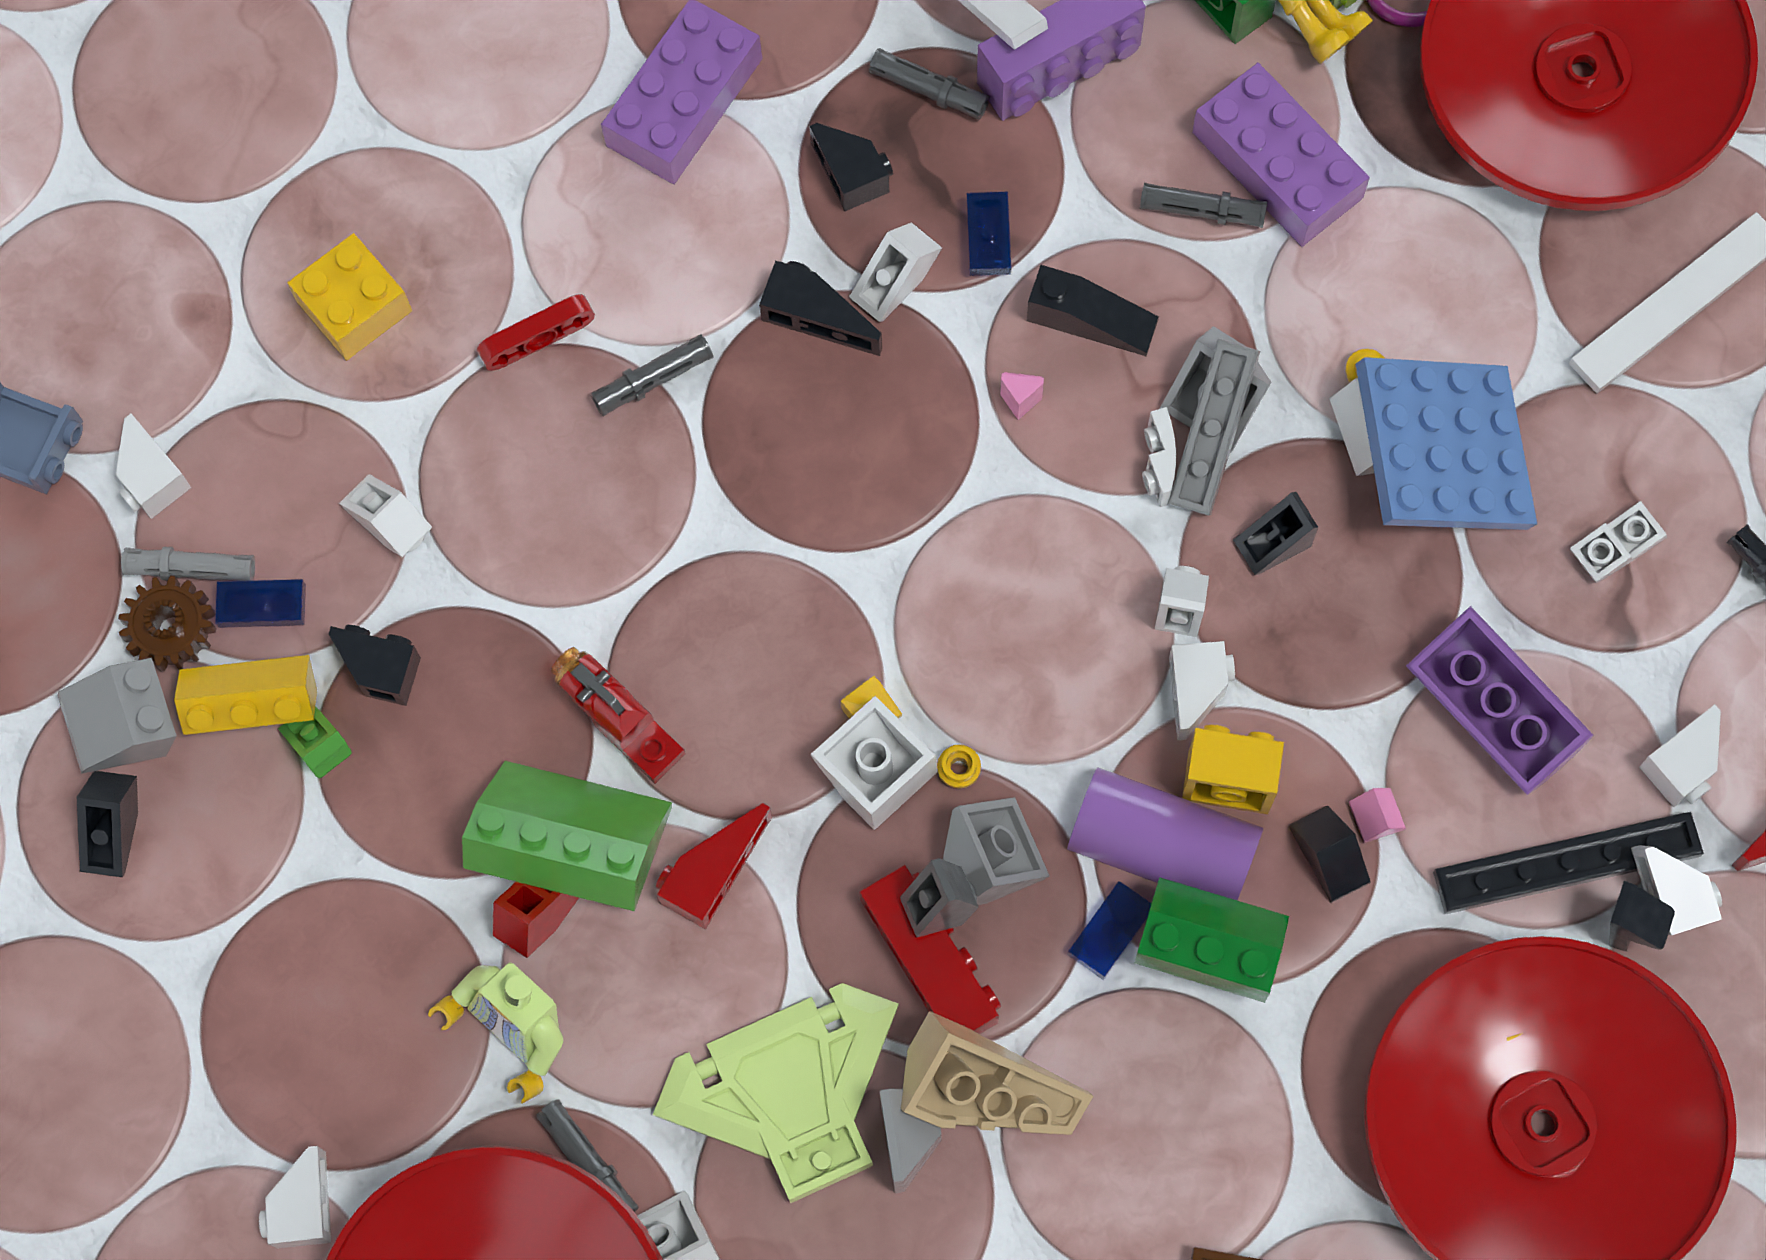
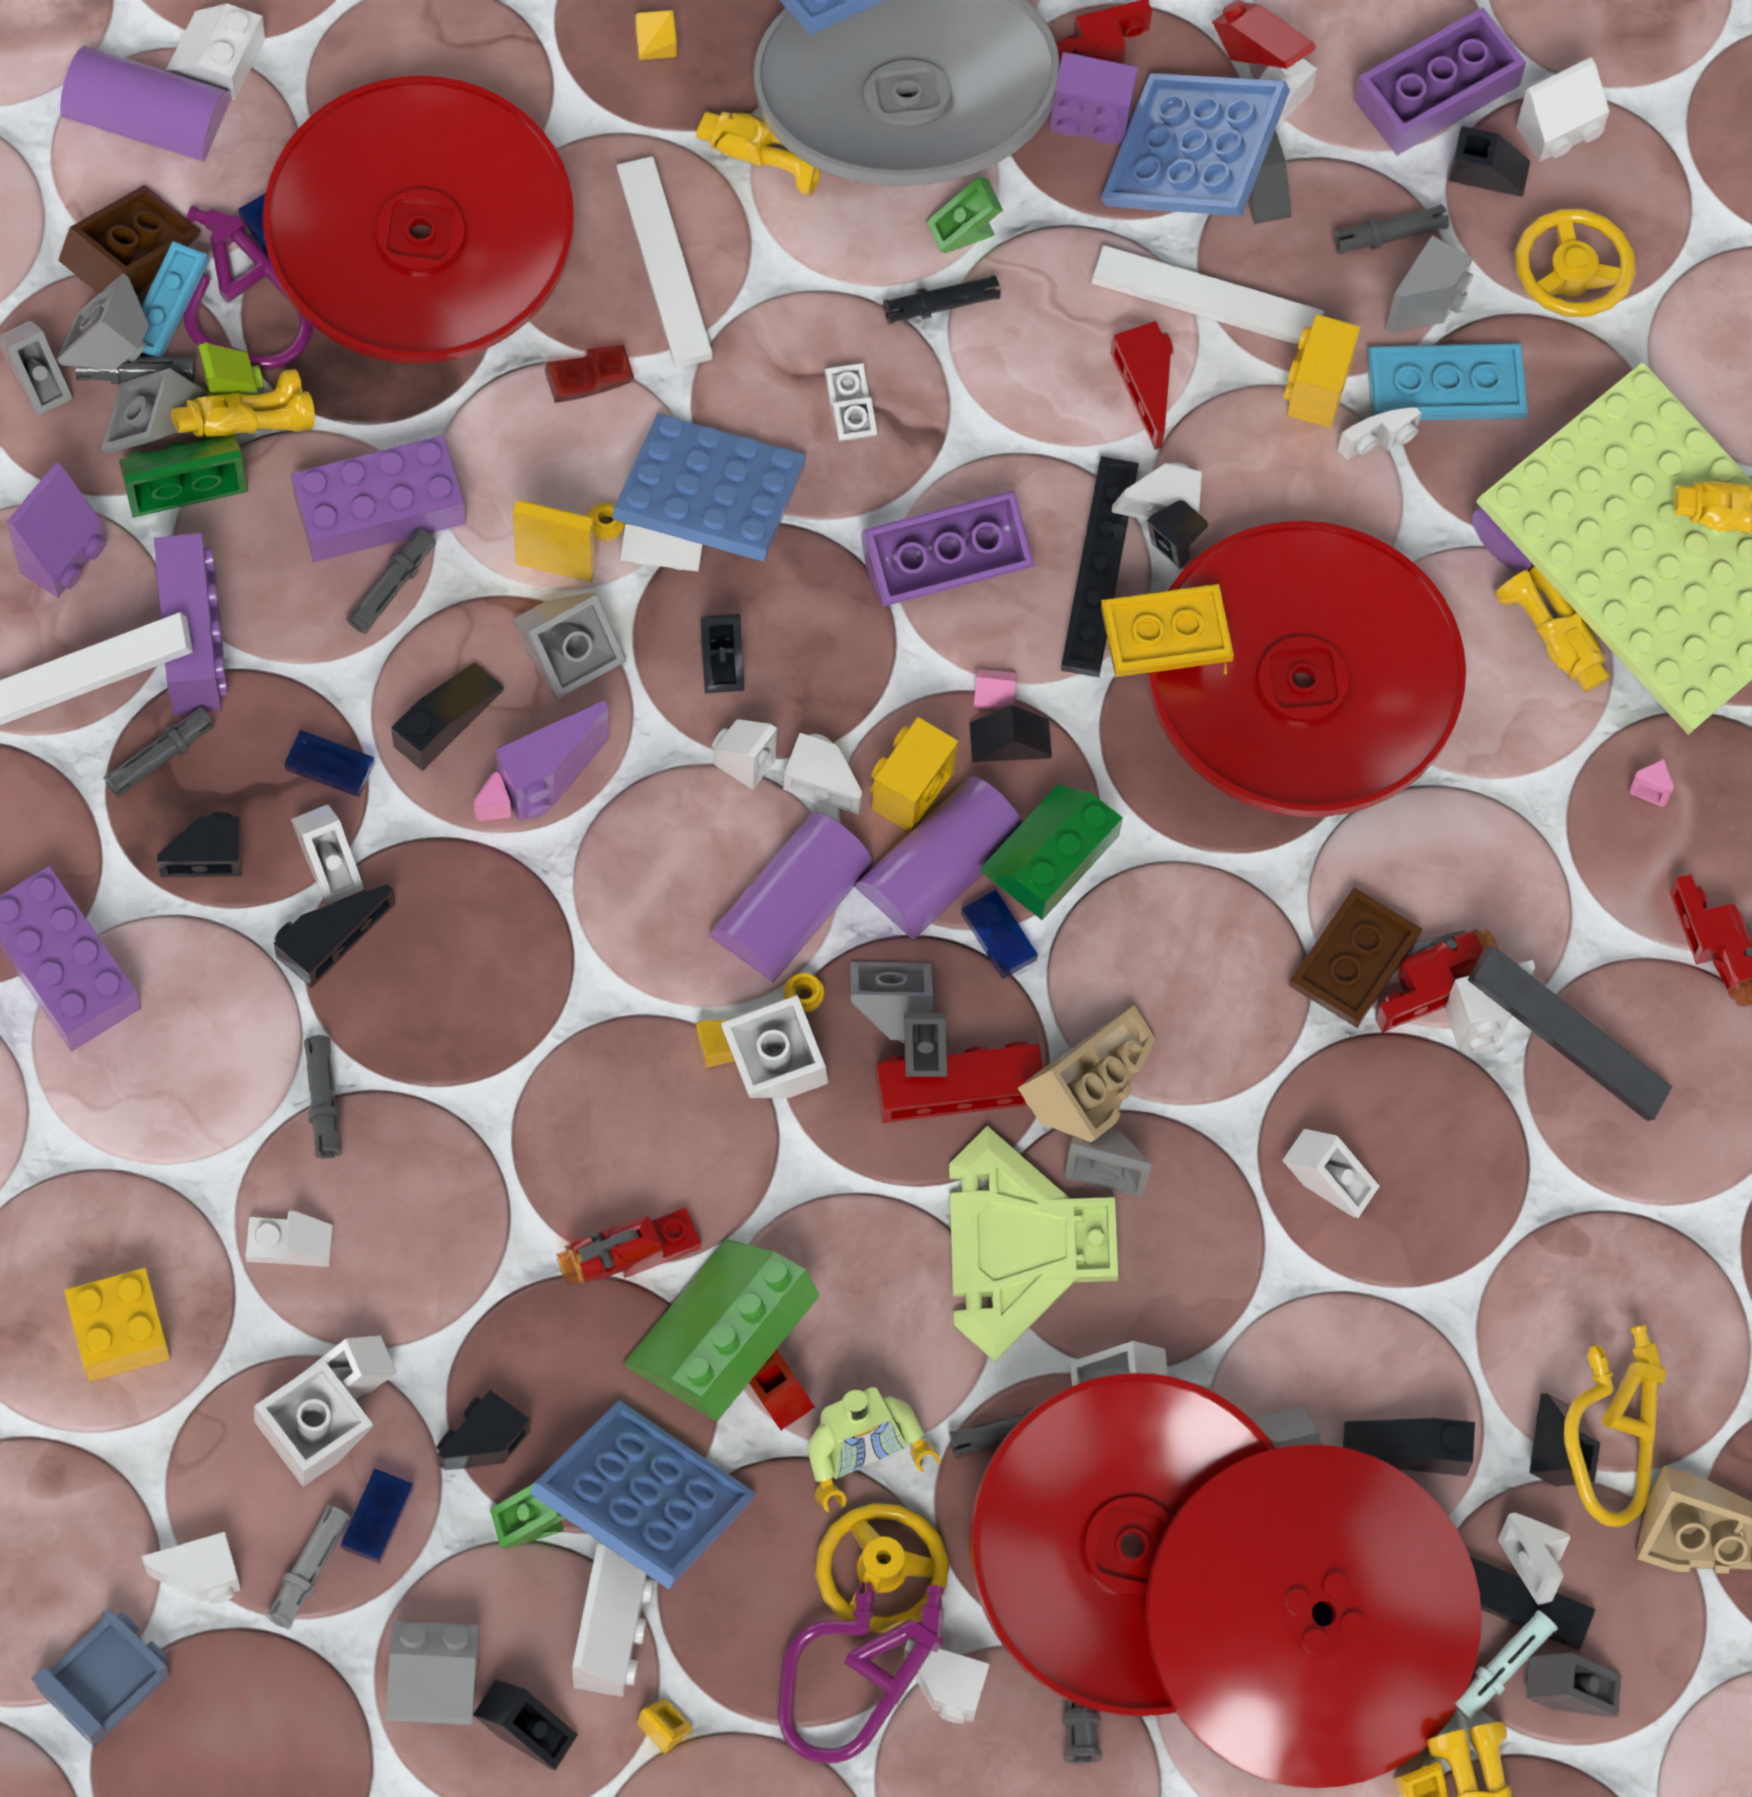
camera: 75 degrees left, 5 degrees down
(156, 605) = (352, 1582): reddish brown gear -> none
(160, 952) = (664, 1724): none -> yellow slope
(228, 855) = (611, 1625): none -> white slope
(246, 694) = (464, 1554): yellow brick -> none
(317, 501) = (312, 1422): none -> white slope
(322, 1156) = (859, 1659): none -> magenta piece
(358, 830) = (643, 1494): none -> medium blue plate
(394, 1092) = (882, 1560): none -> yellow piece
(499, 410) = (289, 1241): none -> white slope
(535, 332) = (232, 1178): red beam -> none
(708, 870) = (806, 1229): red slope -> none
(1053, 712) = (793, 895): none -> medium lavender brick
(1079, 424) = (549, 760): none -> medium lavender slope
(1160, 465) = (624, 719): white slope -> none
(1214, 427) = (607, 656): light grey tile -> none
(1306, 321) = (554, 540): none -> yellow tile
(1513, 955) = (1167, 630): none -> yellow tile
(1516, 288) = (590, 375): none -> clear red slope
(1686, 760) = (1058, 437): white slope -> none

